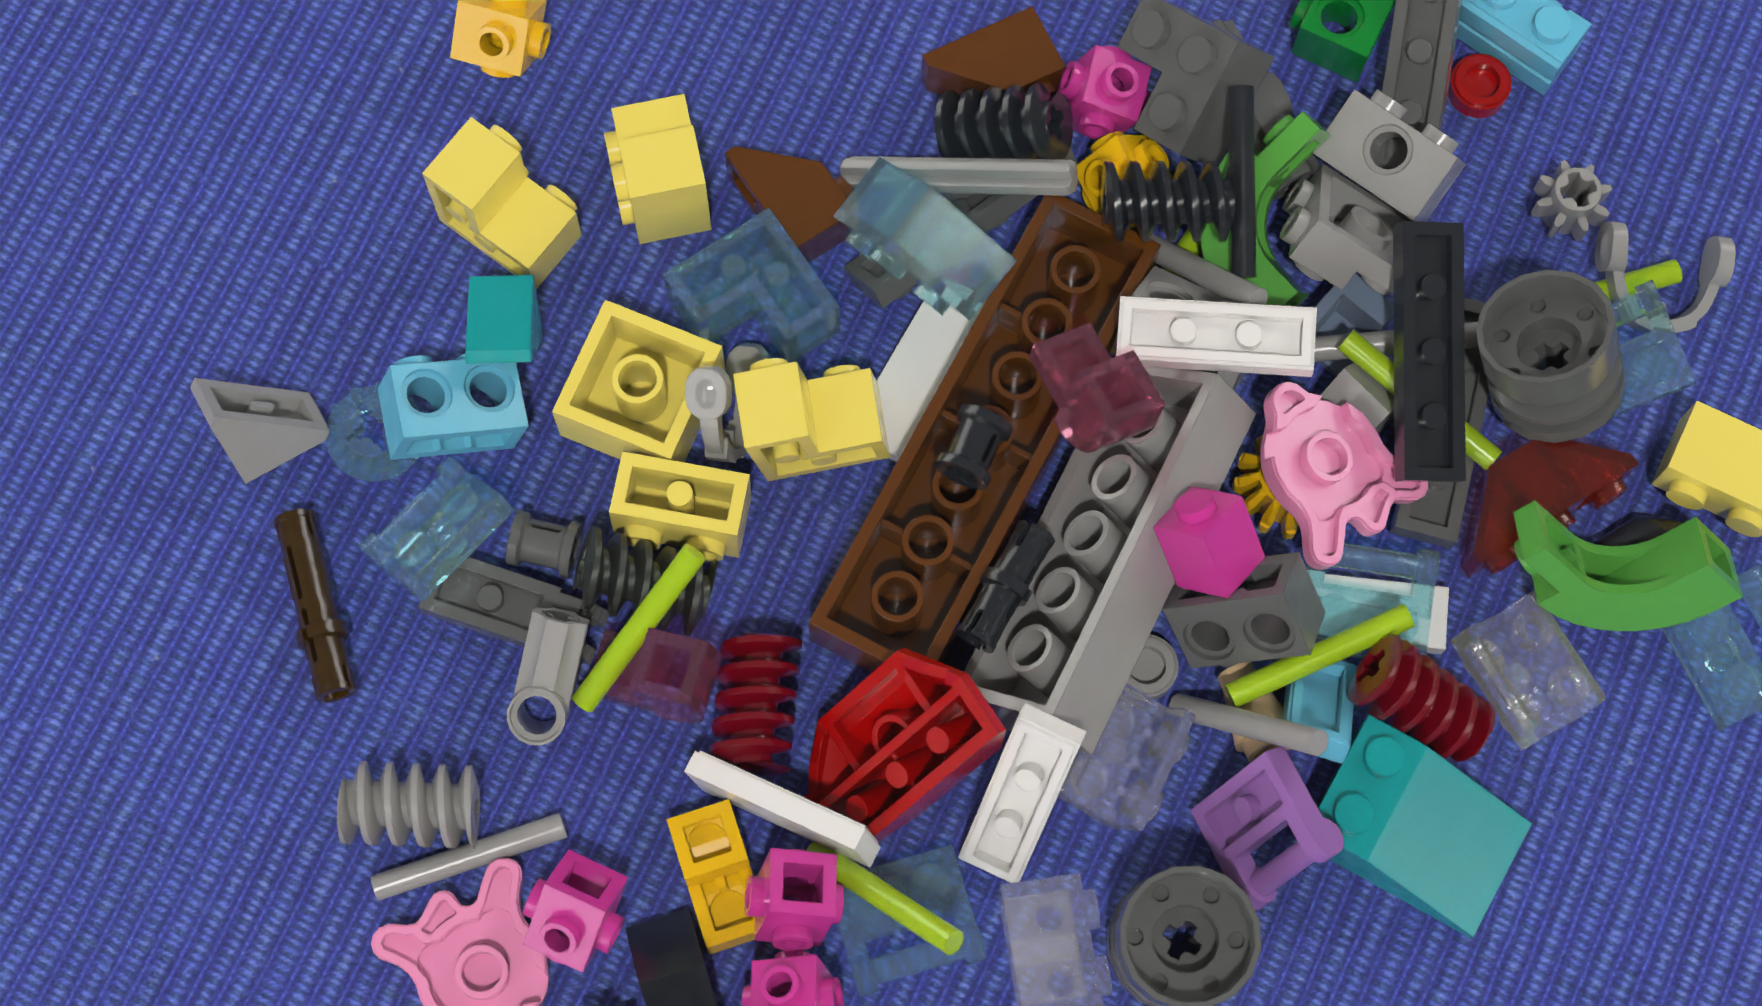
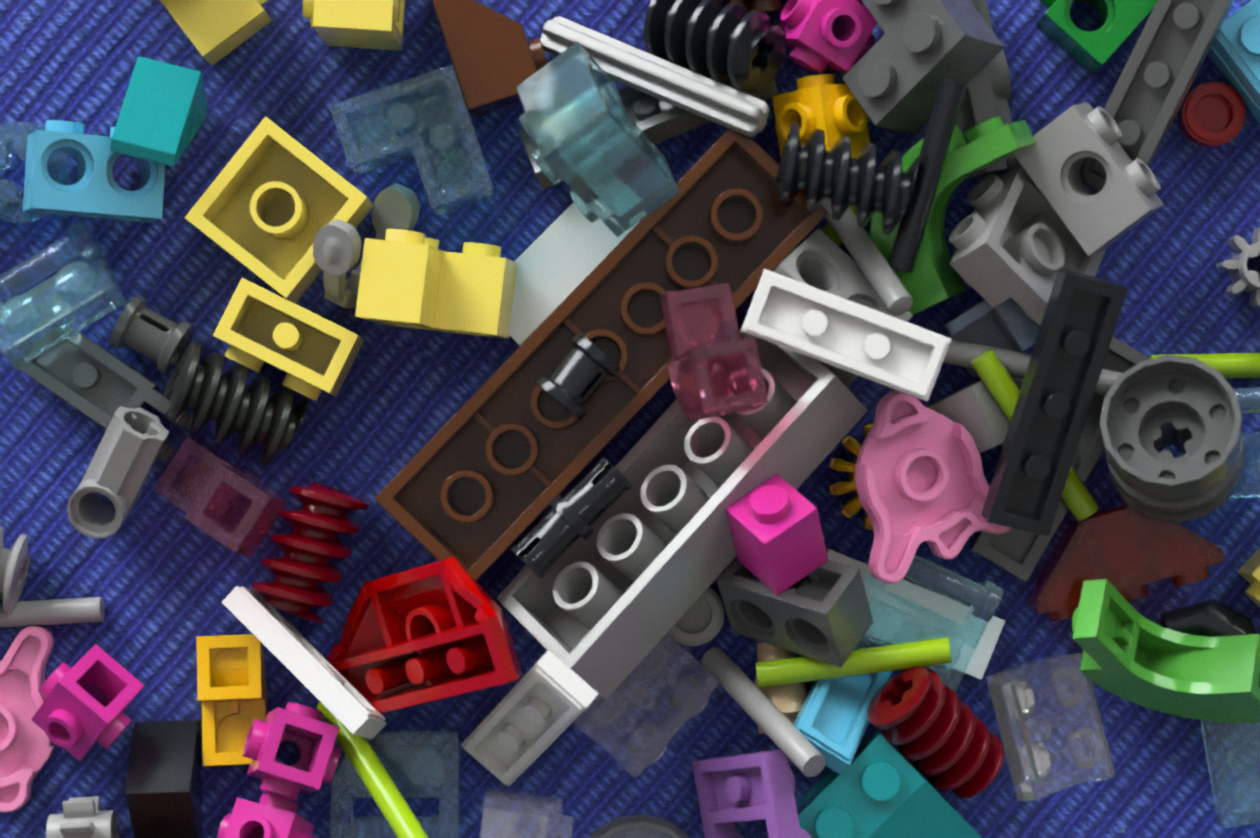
camera: 15 degrees right, 15 degrees up
(633, 633) = (207, 459): lime bar -> none

